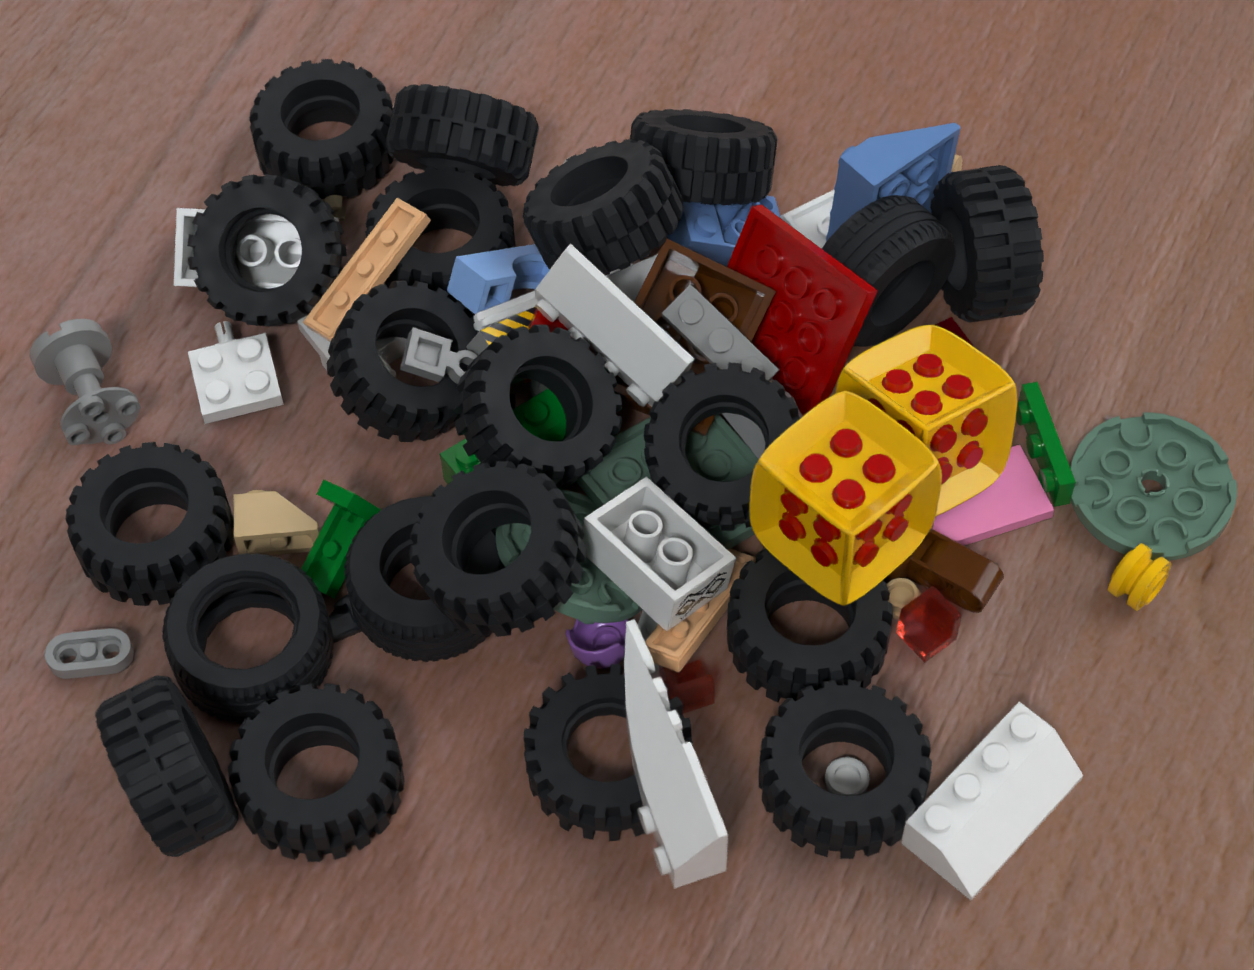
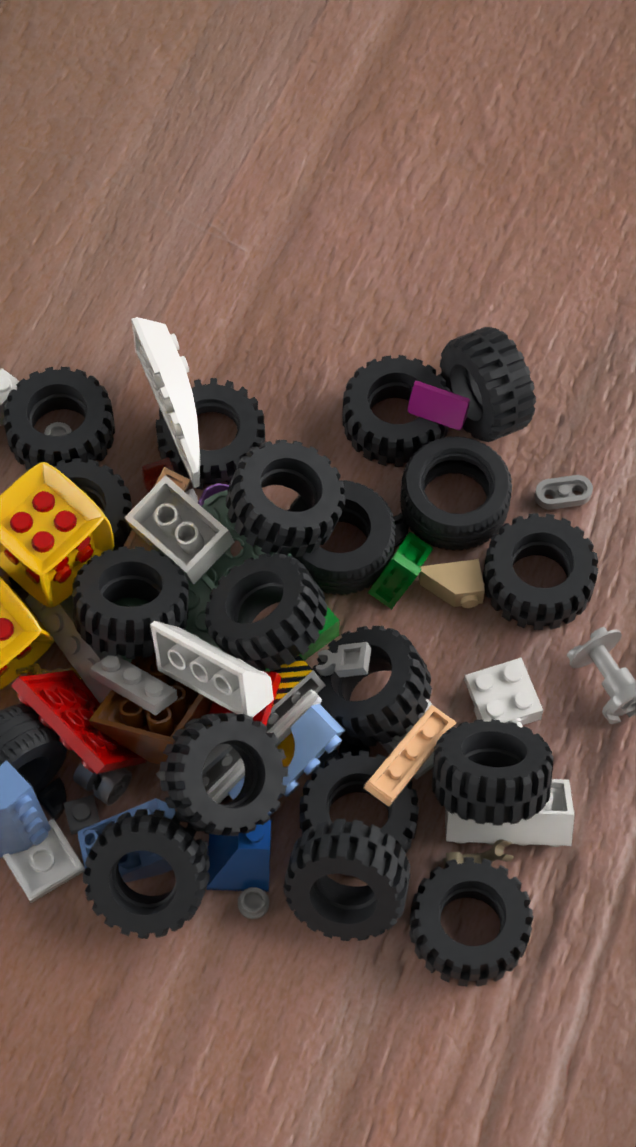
camera: 175 degrees right, 5 degrees up
(249, 725) = (438, 405): none -> magenta slope

